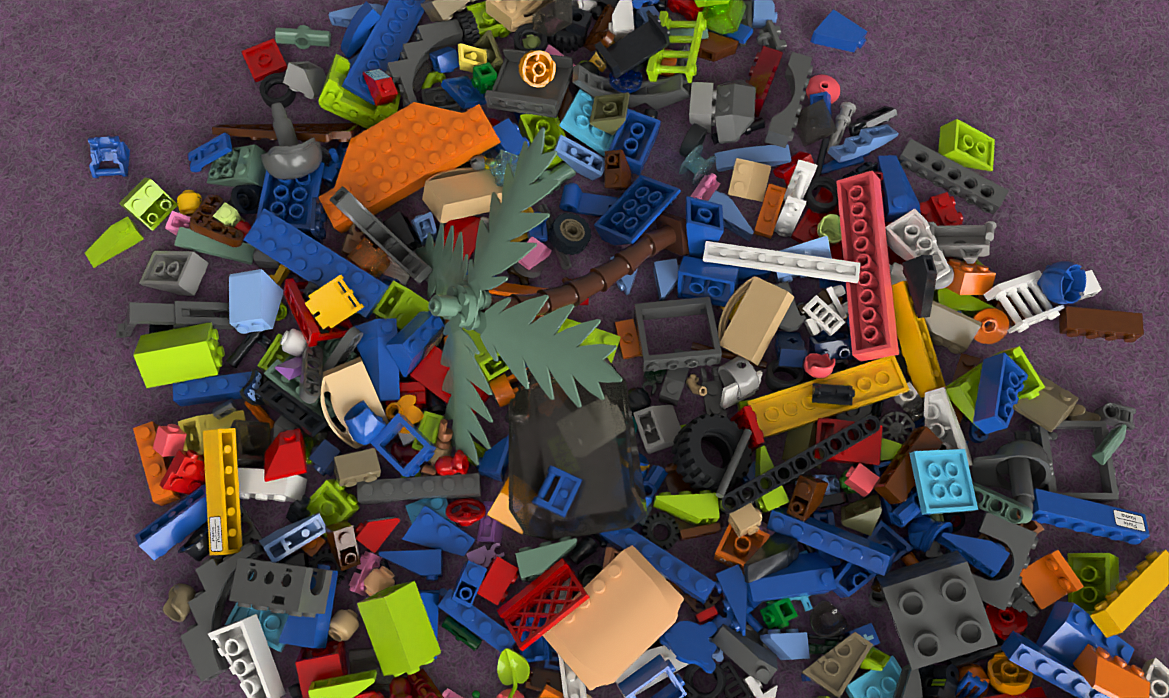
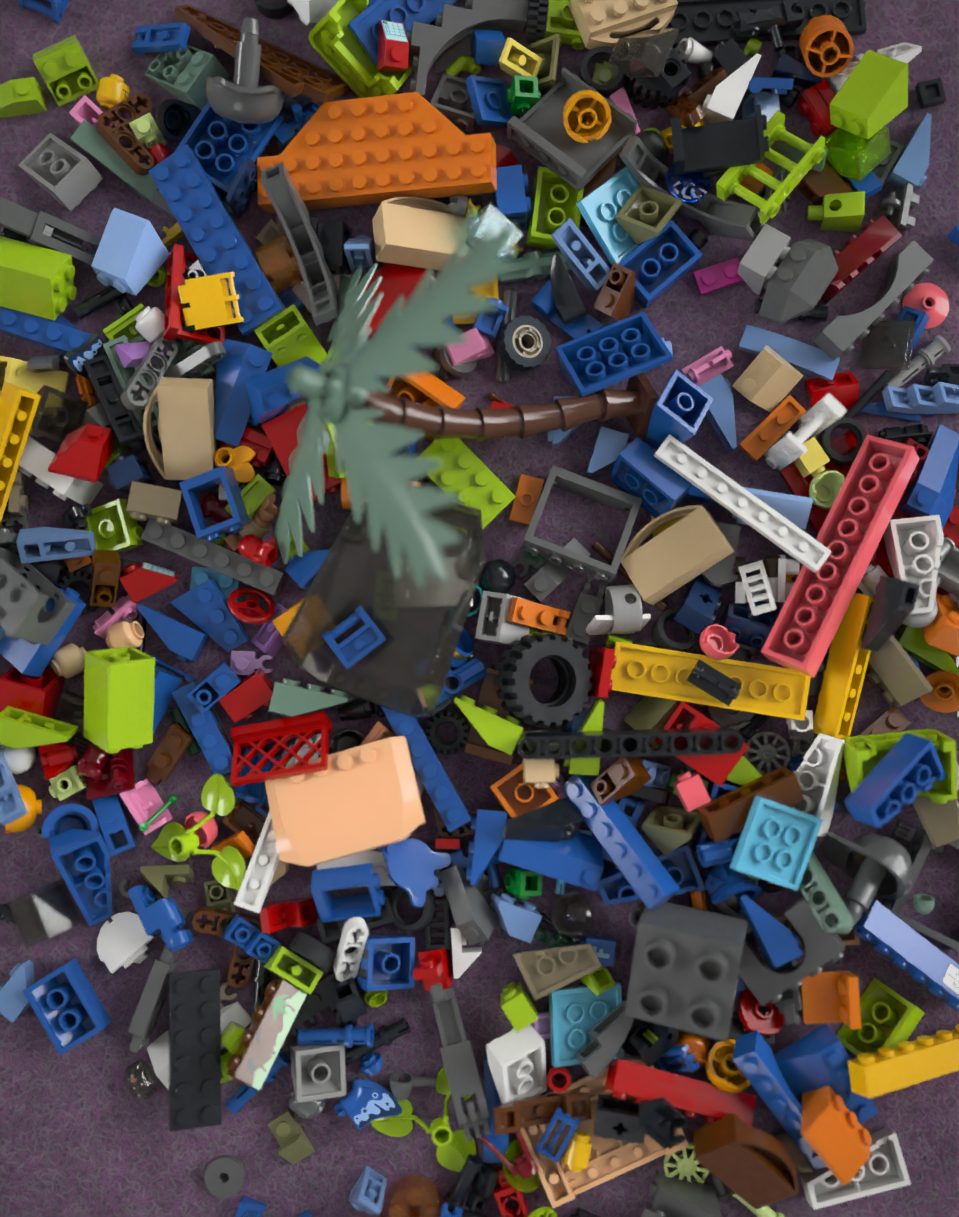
camera: 30 degrees right, 15 degrees up
(248, 520) = (17, 499): none -> dark tan plate
(363, 423) = (181, 458): blue piece -> none
(456, 658) = (168, 754): none -> reddish brown hinge
(583, 188) = (565, 294): none -> black piece
(675, 134) = (717, 276): none -> dark pink plate
(679, 412) = (537, 616): none -> orange plate
(693, 138) = (728, 298): black tyre -> none
(694, 387) = (570, 595): tan arm -> none
(697, 164) = (716, 330): clear light blue piece -> none
(733, 463) = (558, 705): dark grey bar -> none
(734, 56) = (839, 211): none -> lime torso
(809, 217) = (812, 460): none -> light yellow brick
(1068, 476) = (923, 903): none -> sand green hinge

